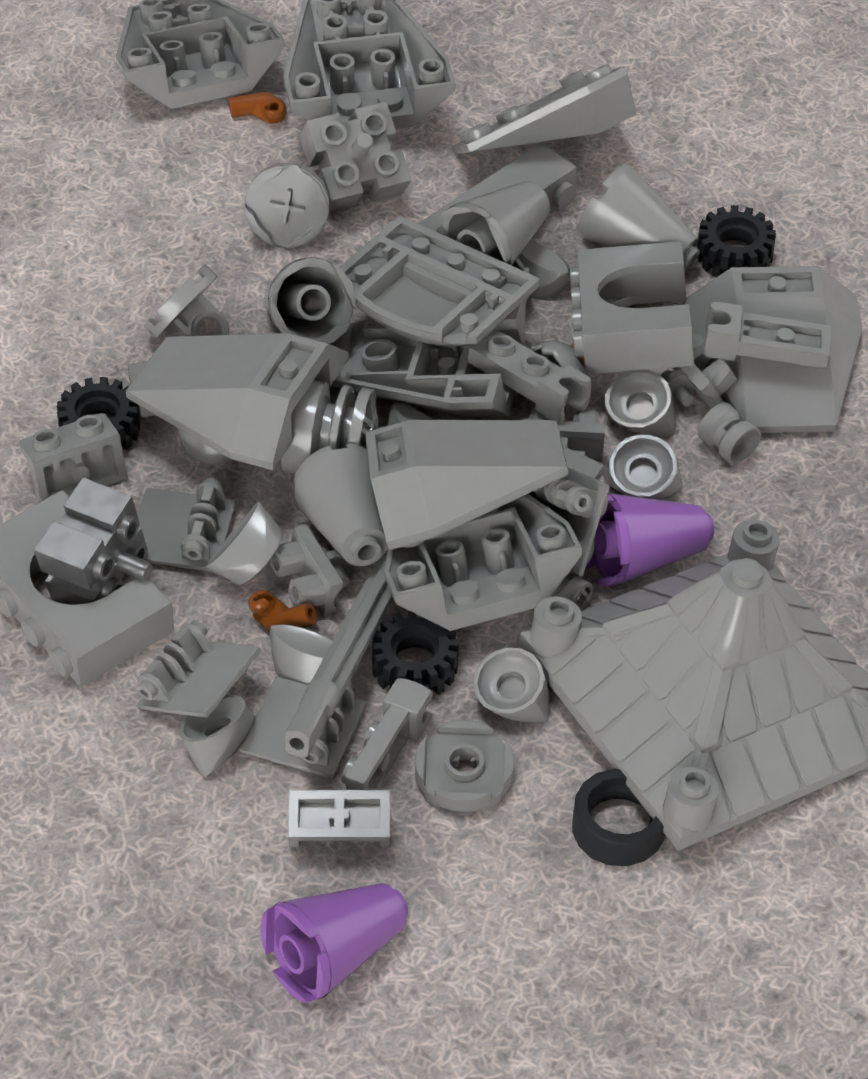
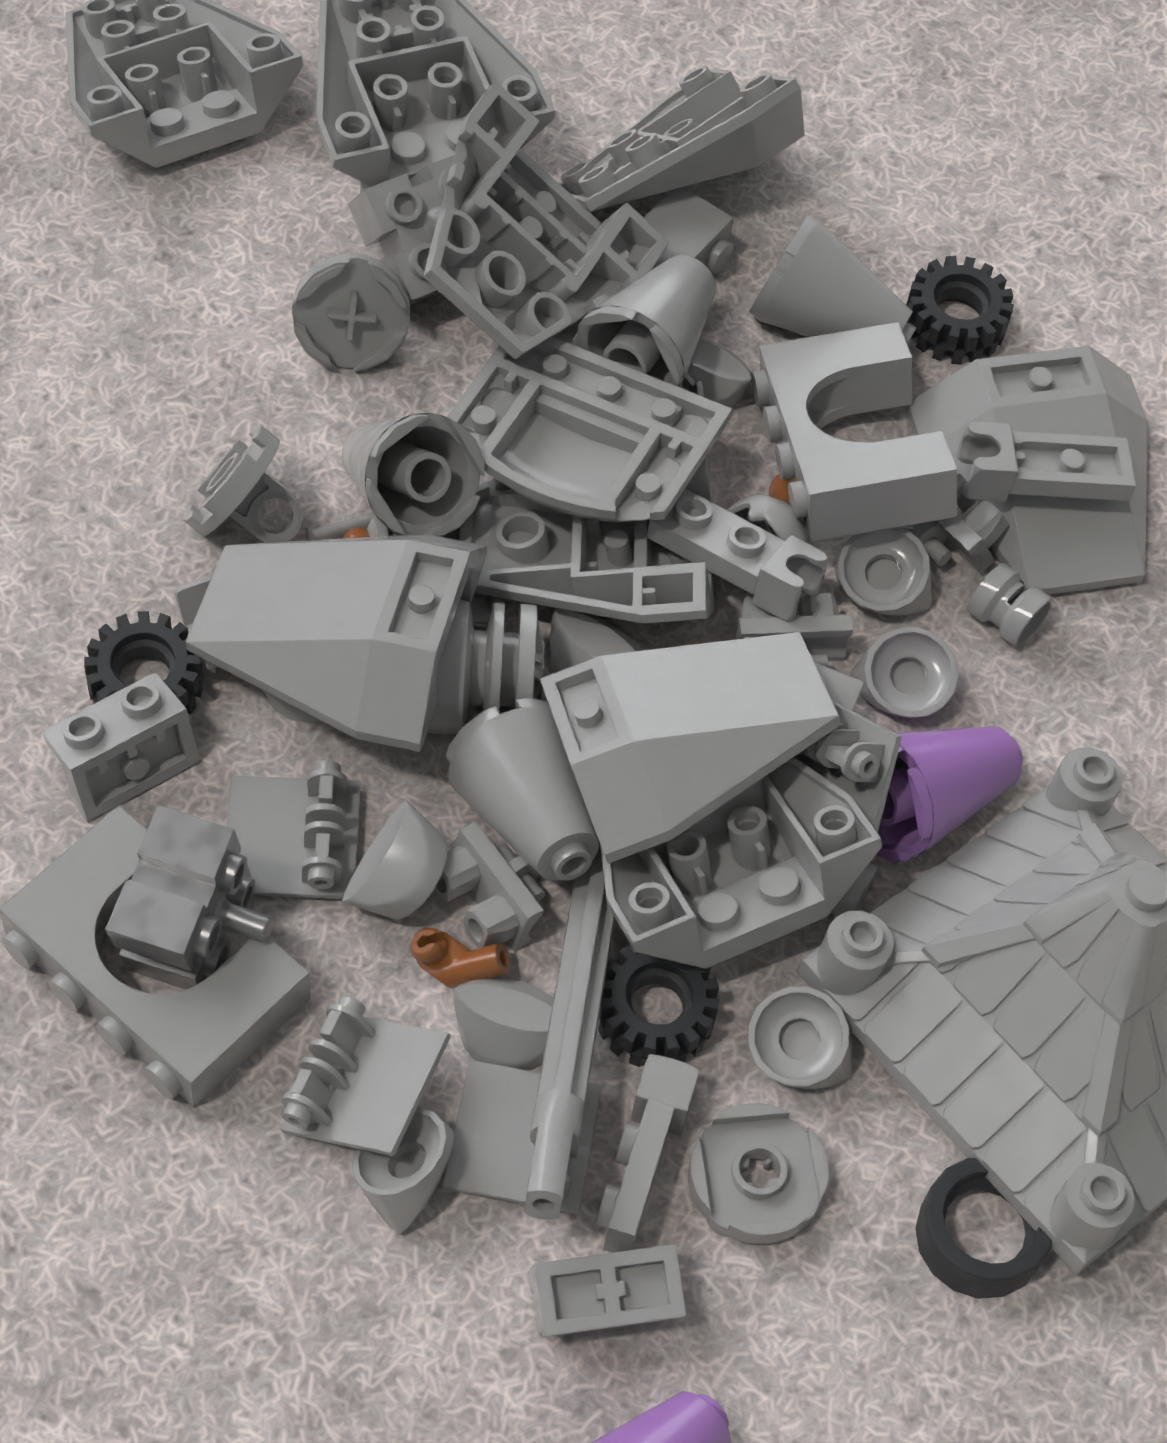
camera: 15 degrees left, 10 degrees up
(261, 105) = (278, 151): dark orange arm -> none
(406, 160) = (519, 245): none -> light grey wedge

